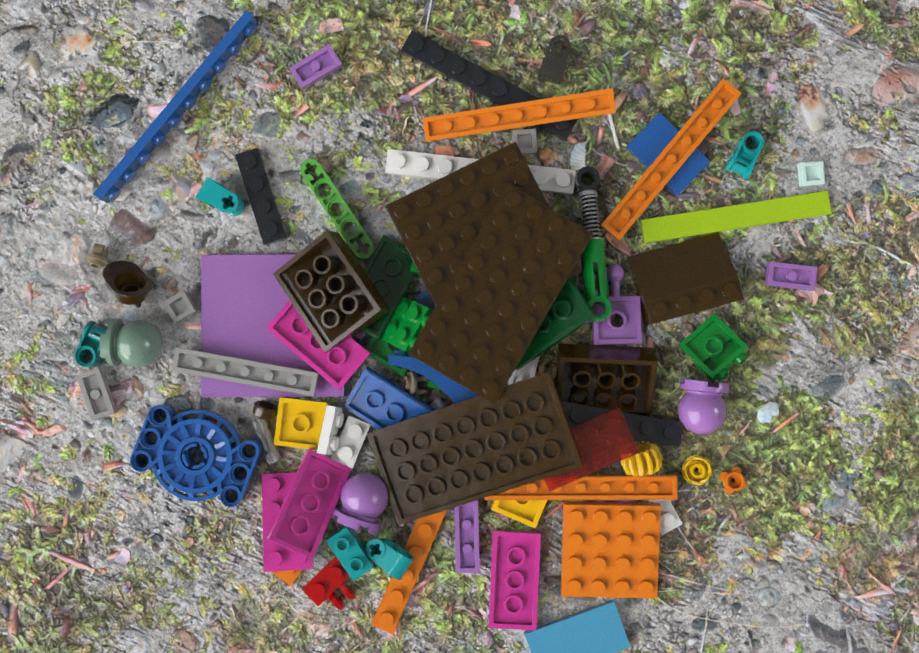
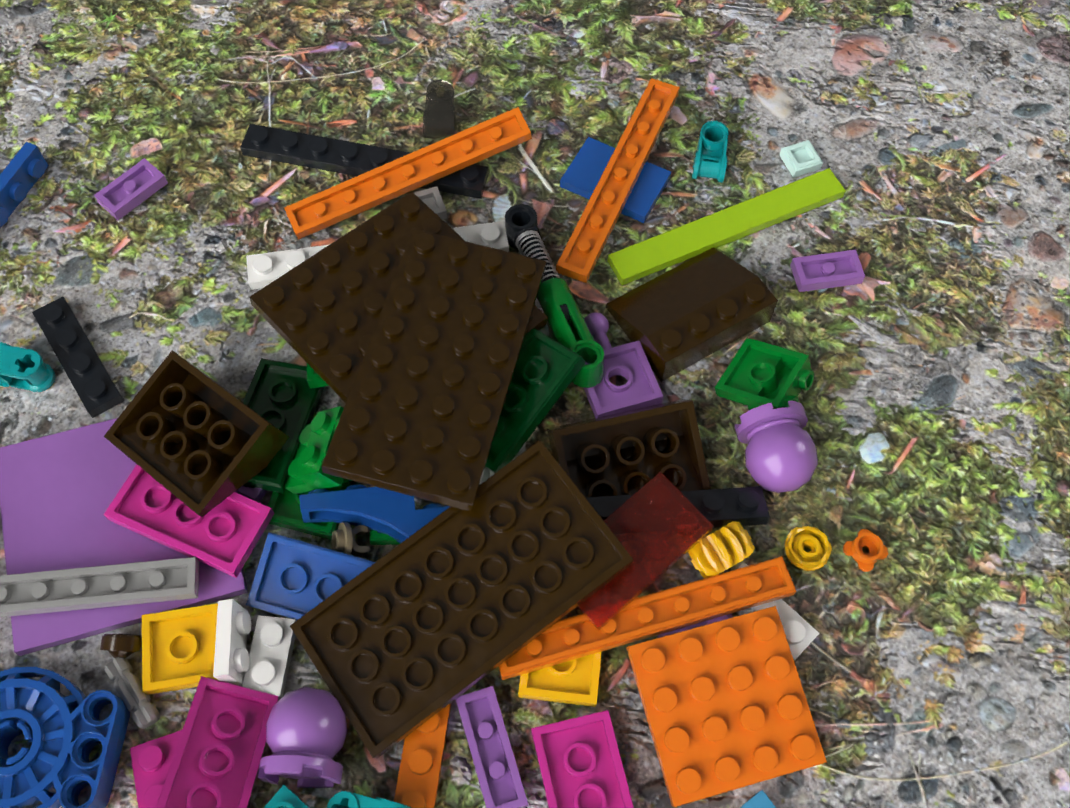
camera: 15 degrees left, 25 degrees down
(333, 198) = (183, 331): bright green beam -> none

